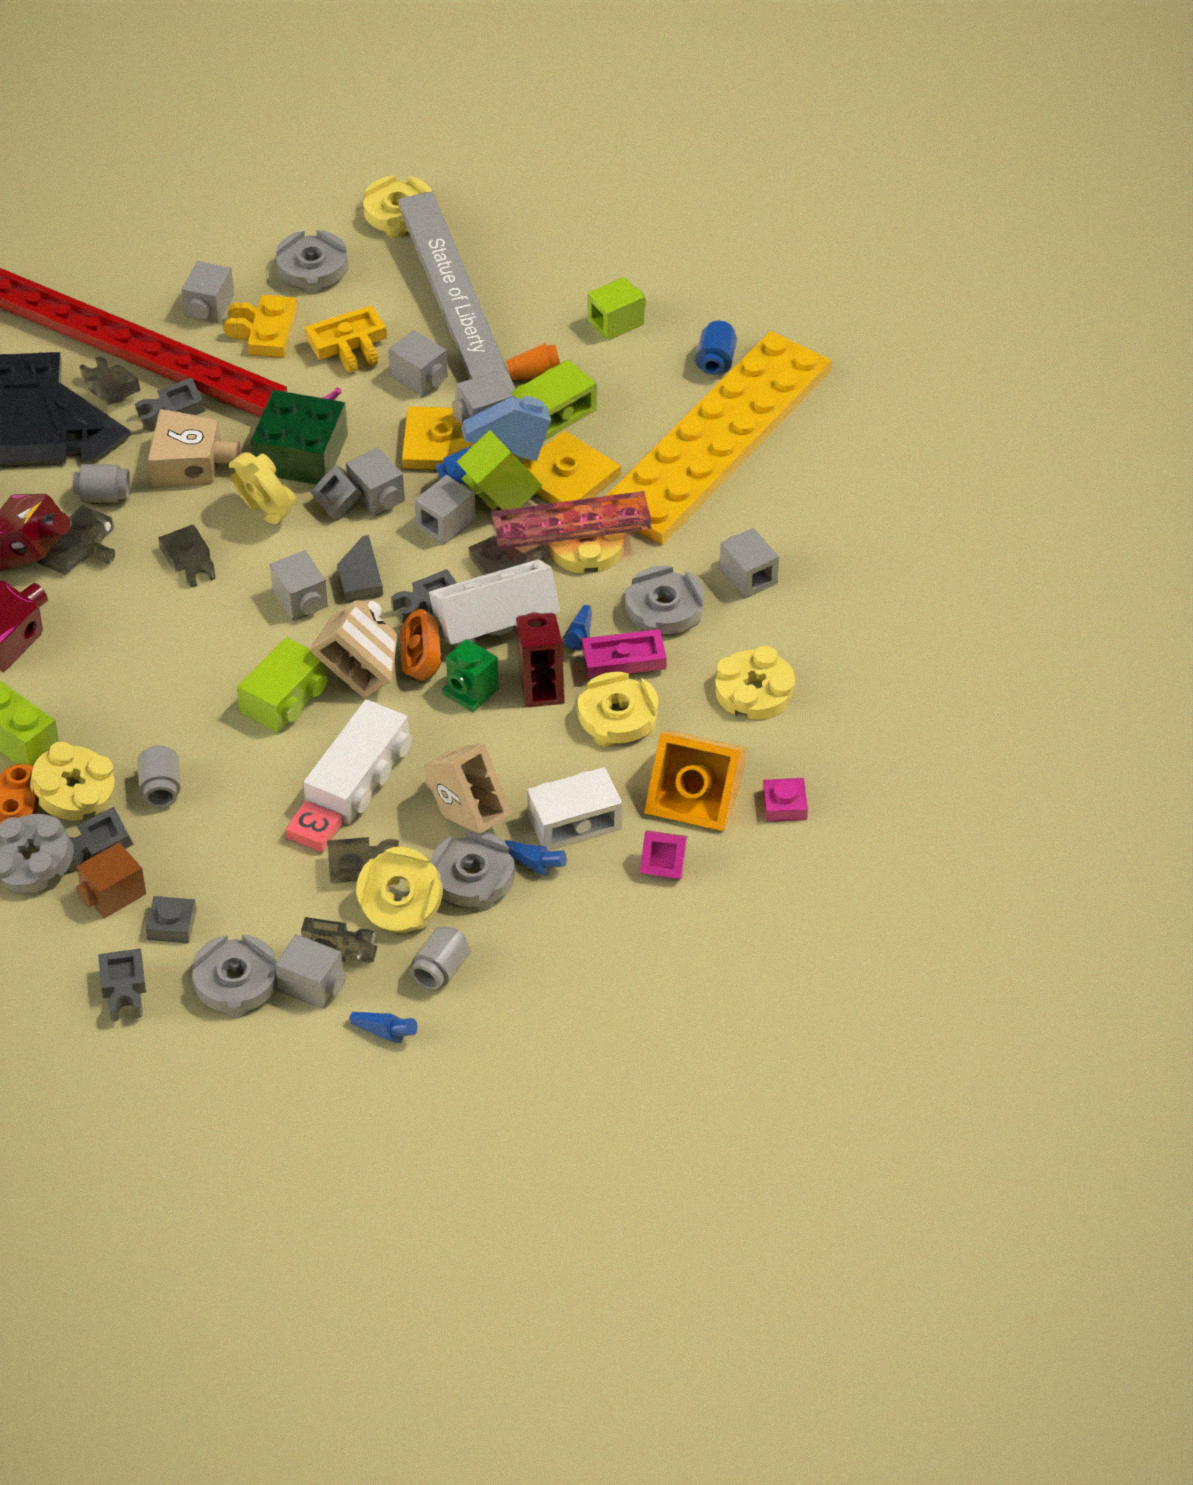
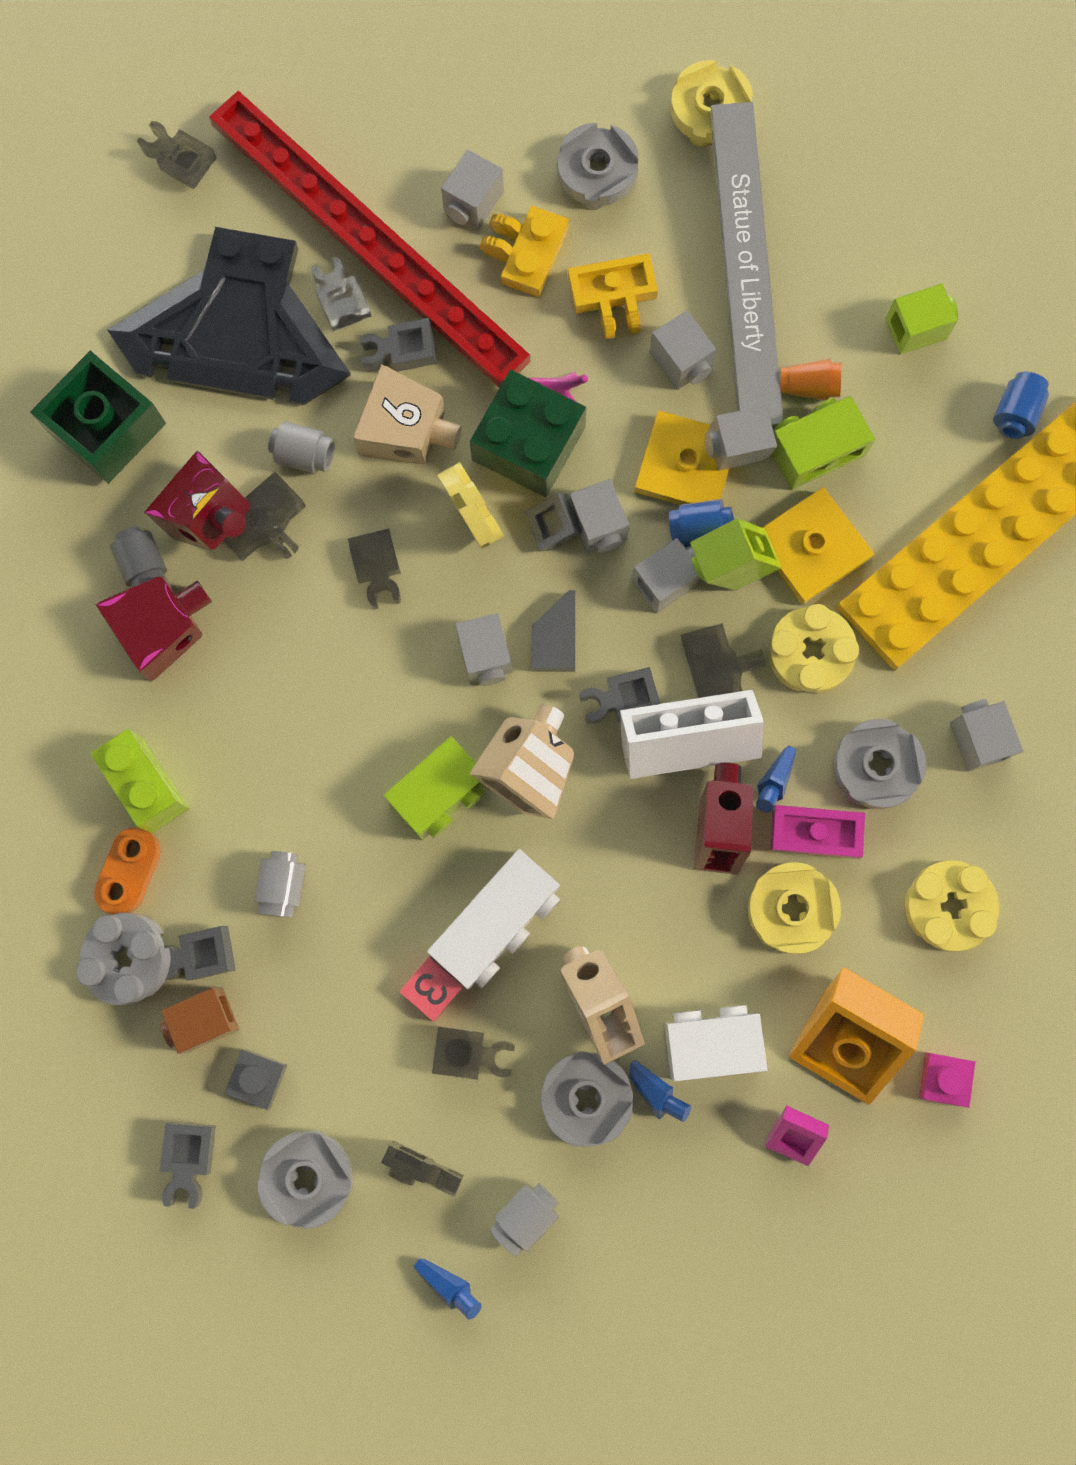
camera: 15 degrees right, 30 degrees up
(74, 762) = (161, 877): light yellow plate -> none
(310, 971) = (384, 1204): light grey brick -> none
(386, 870) = (513, 1101): light yellow plate -> none
(420, 645) = (597, 767): orange plate -> none
(471, 675) = (642, 828): green brick -> none
(515, 422) = (762, 488): medium blue slope -> none
(571, 520) = (802, 639): clear pink plate -> none

